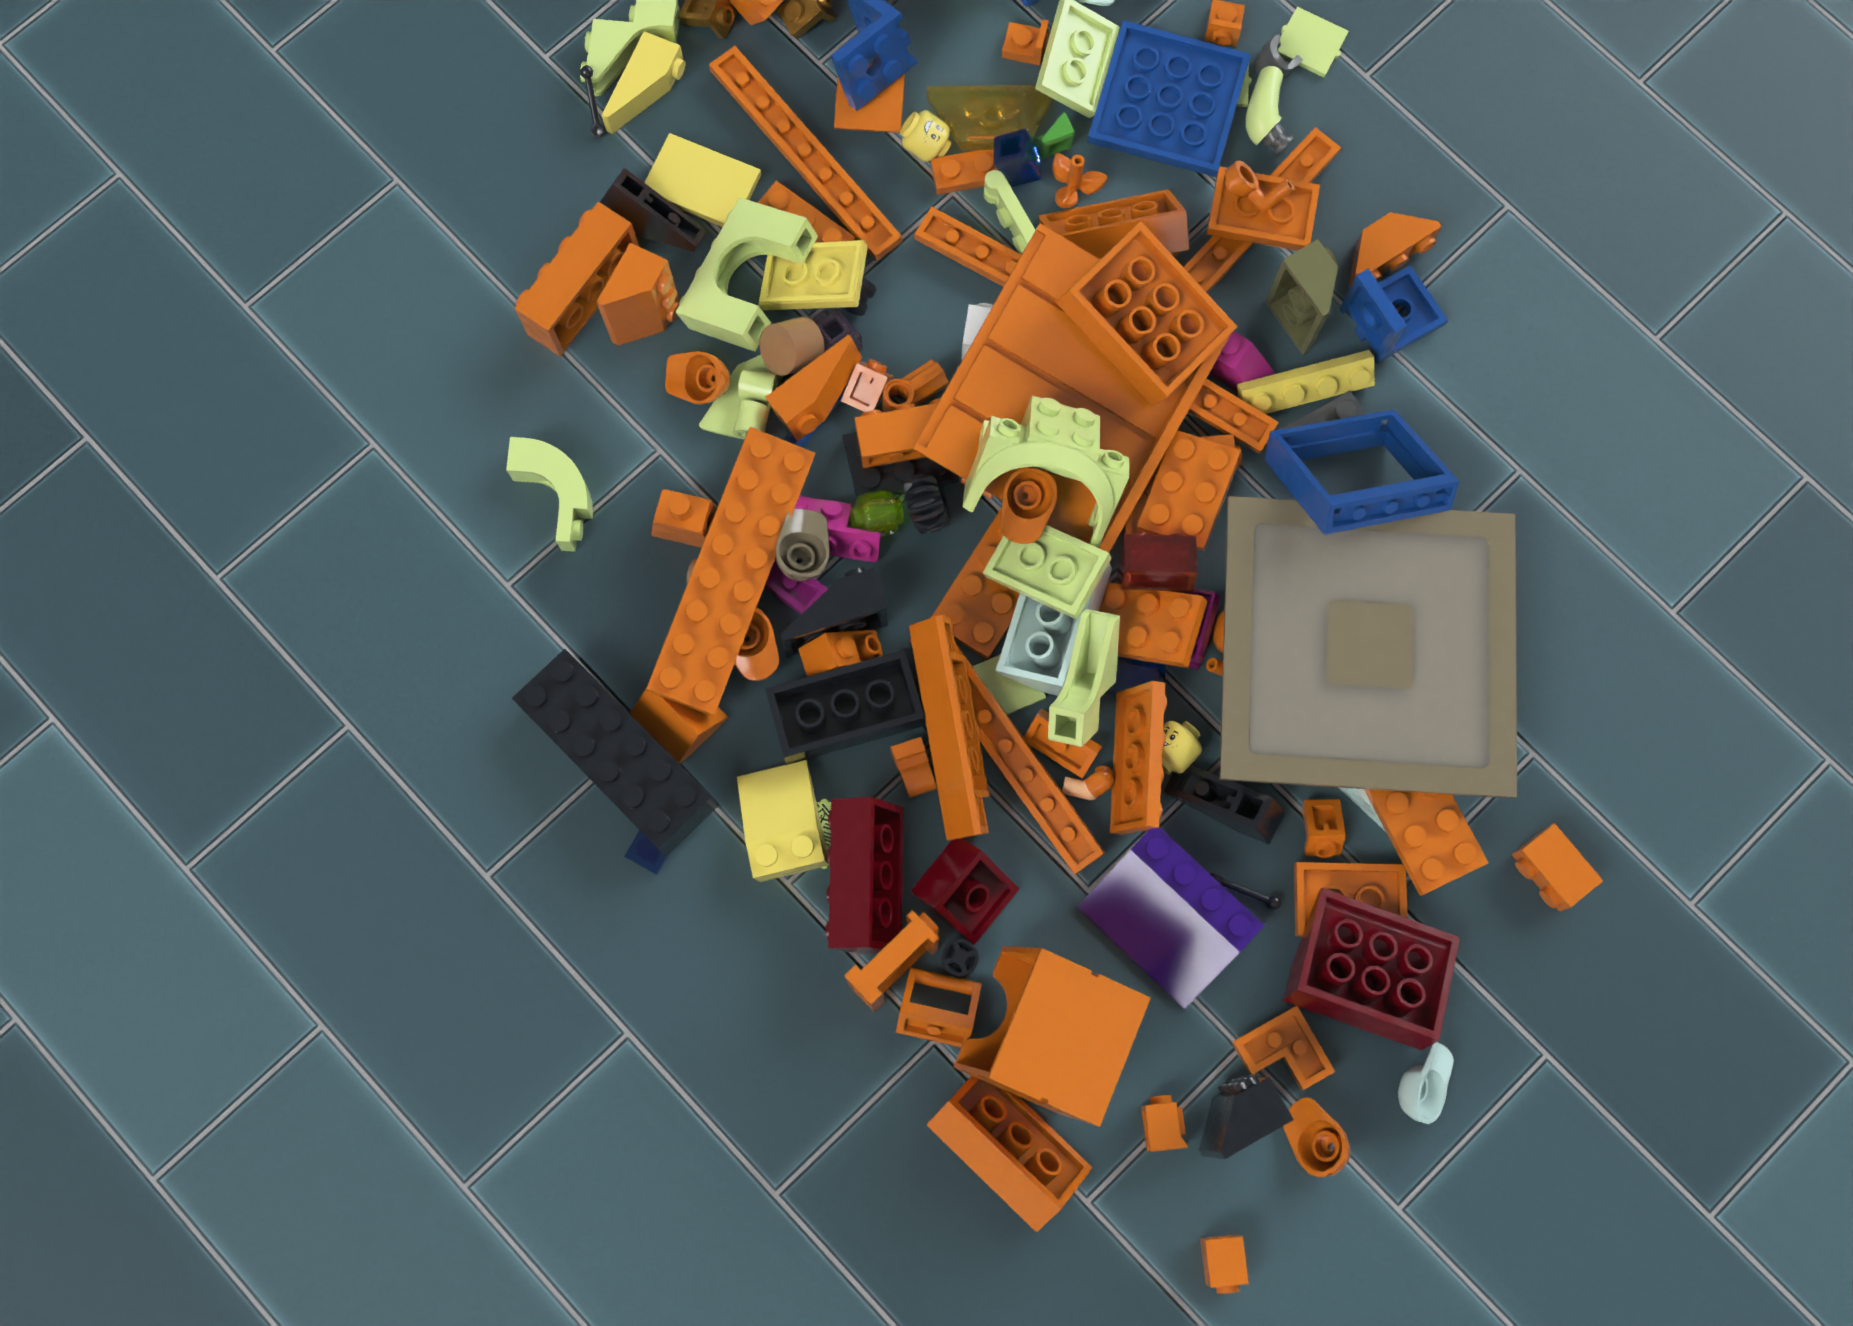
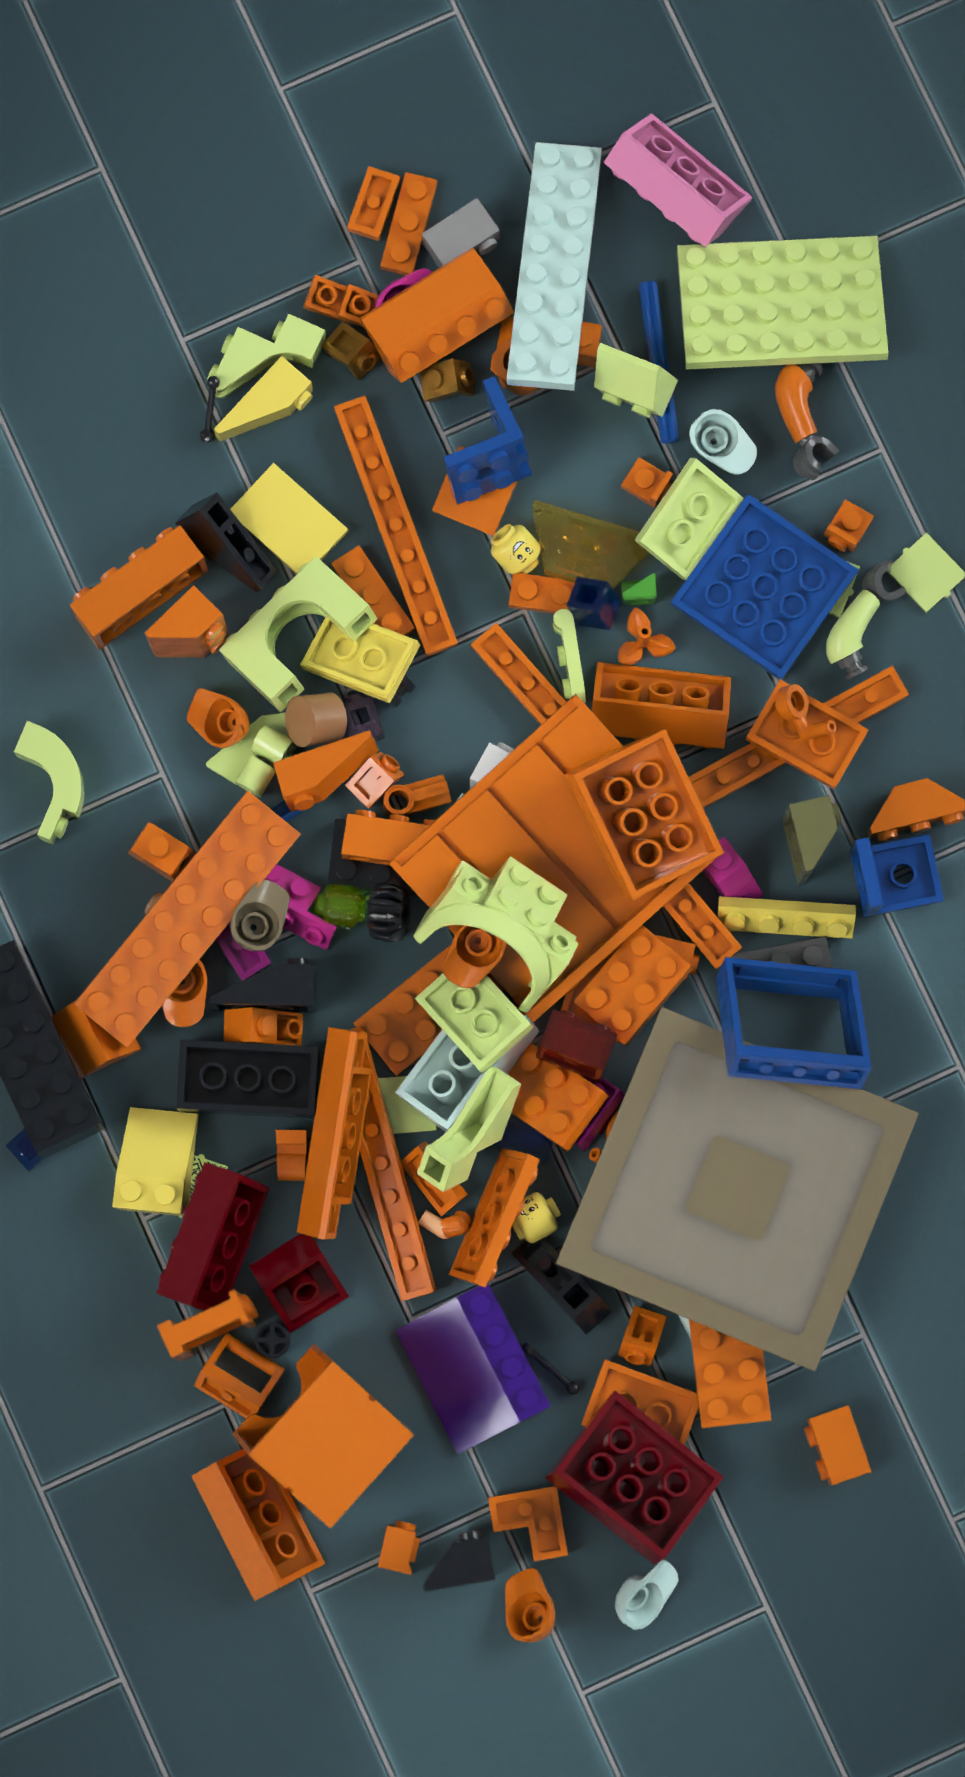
camera: 20 degrees right, 5 degrees up
(1224, 1262) = (408, 1684): orange brick -> none

